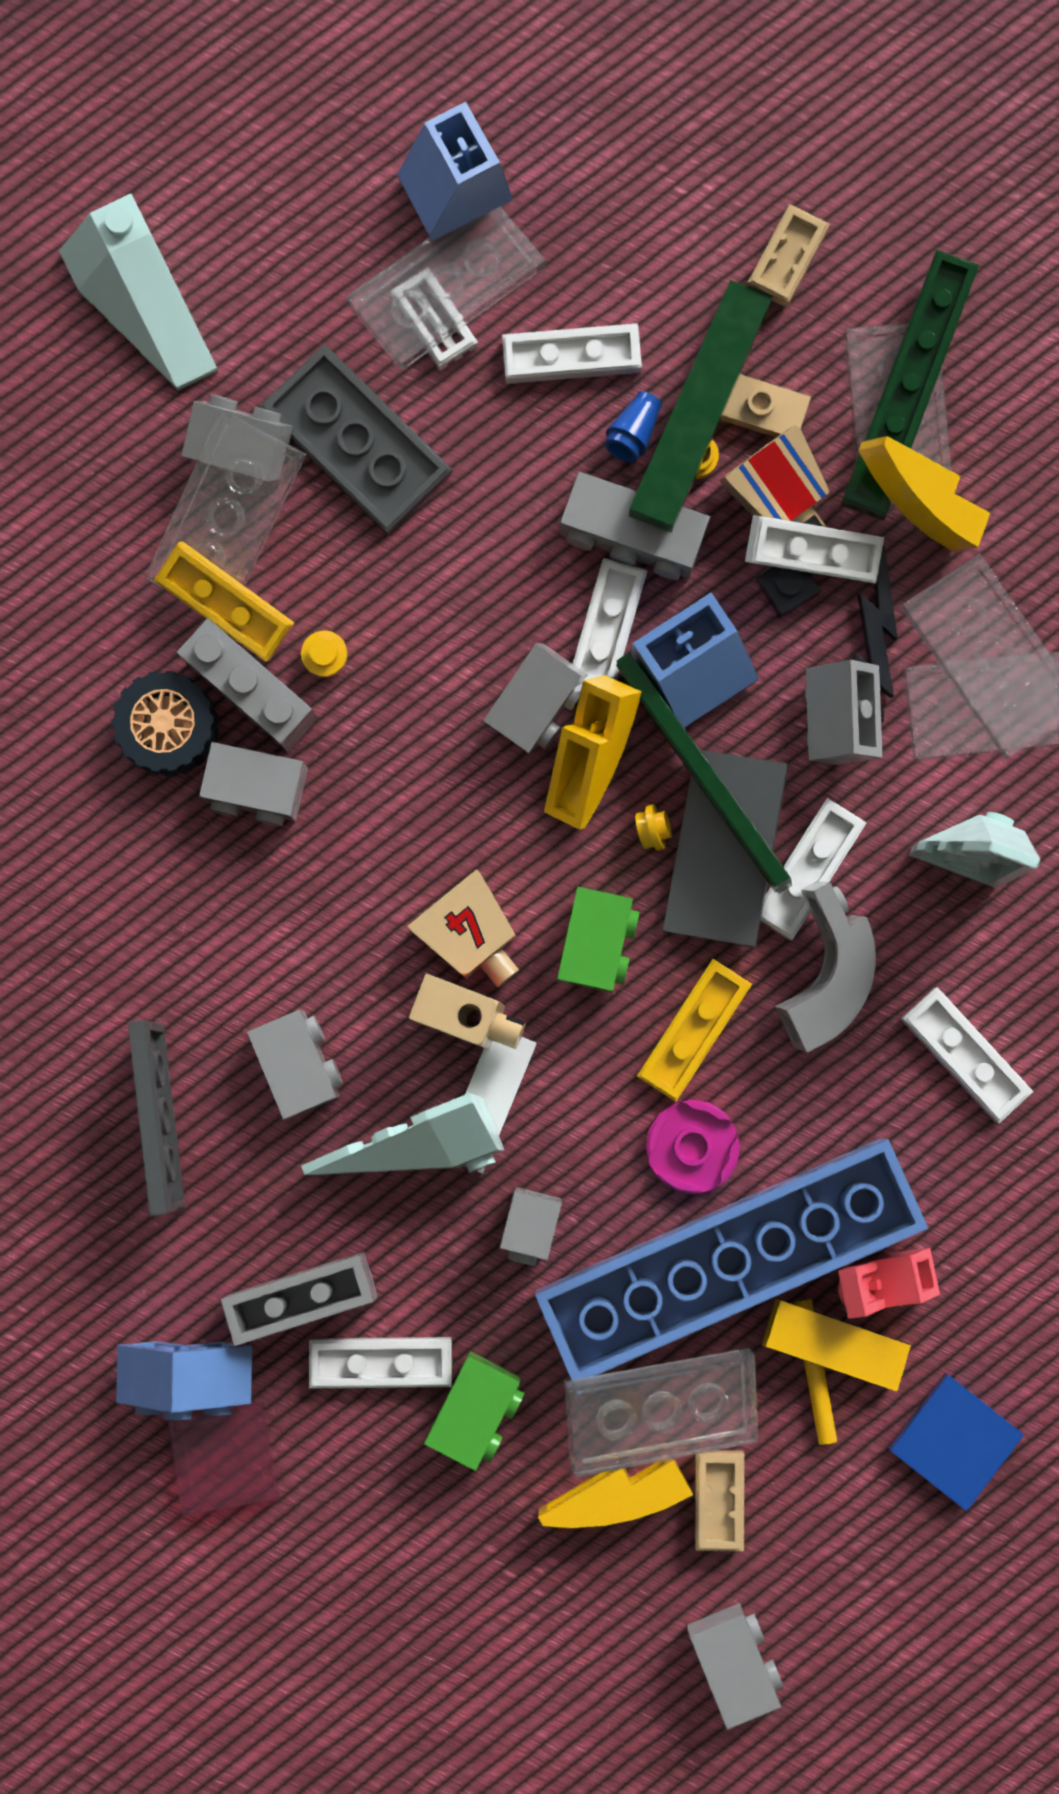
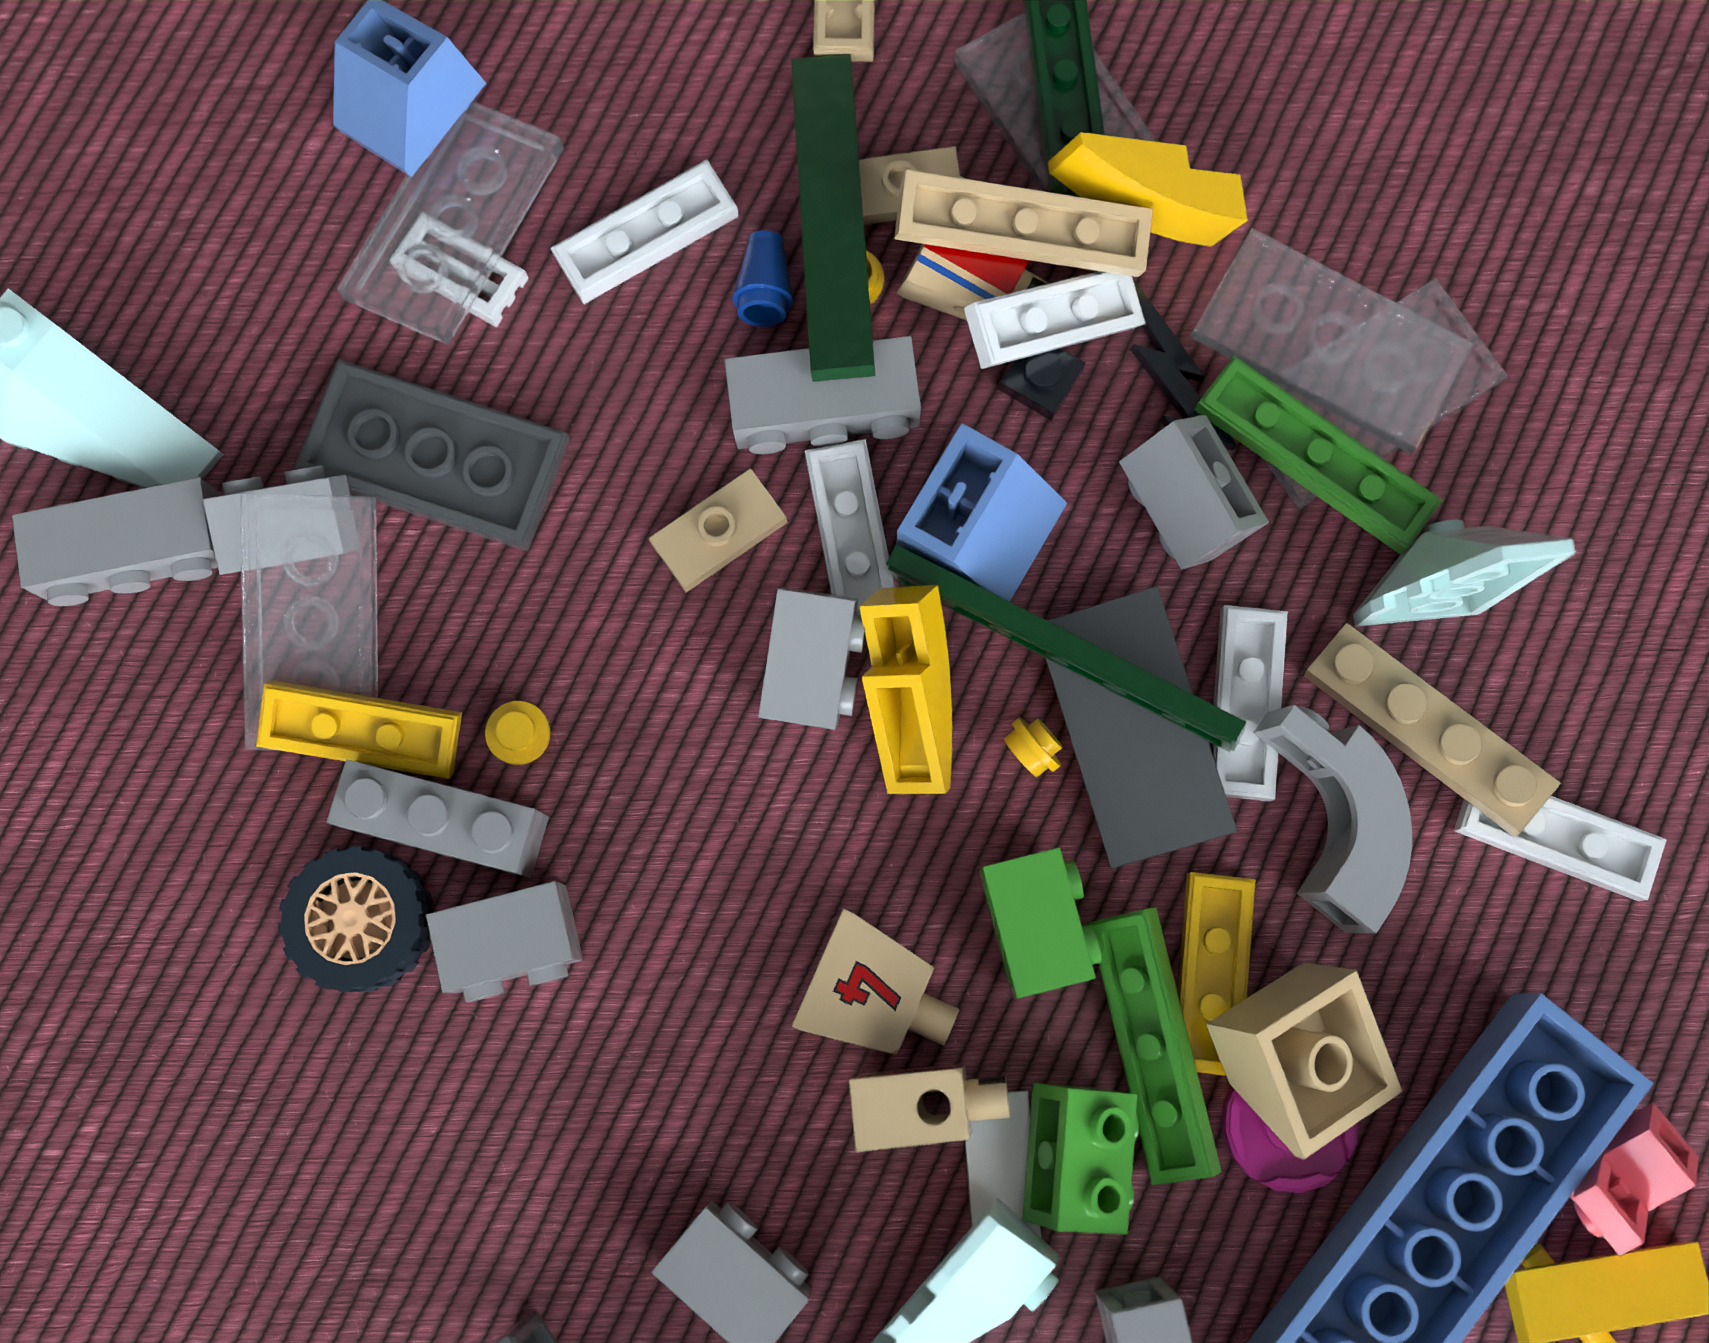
camera: 30 degrees left, 5 degrees down
(124, 400) = (116, 542): none -> light grey brick
(519, 583) = (718, 530): none -> tan plate
(548, 1098) = (1080, 1159): none -> bright green brick
(631, 1054) = (1155, 1048): none -> bright green tile
(722, 1106) = (1306, 1055): none -> tan slope
(821, 477) = (1023, 223): none -> tan plate
(917, 945) = (1432, 730): none -> tan plate
(941, 728) = (1318, 455): none -> bright green tile

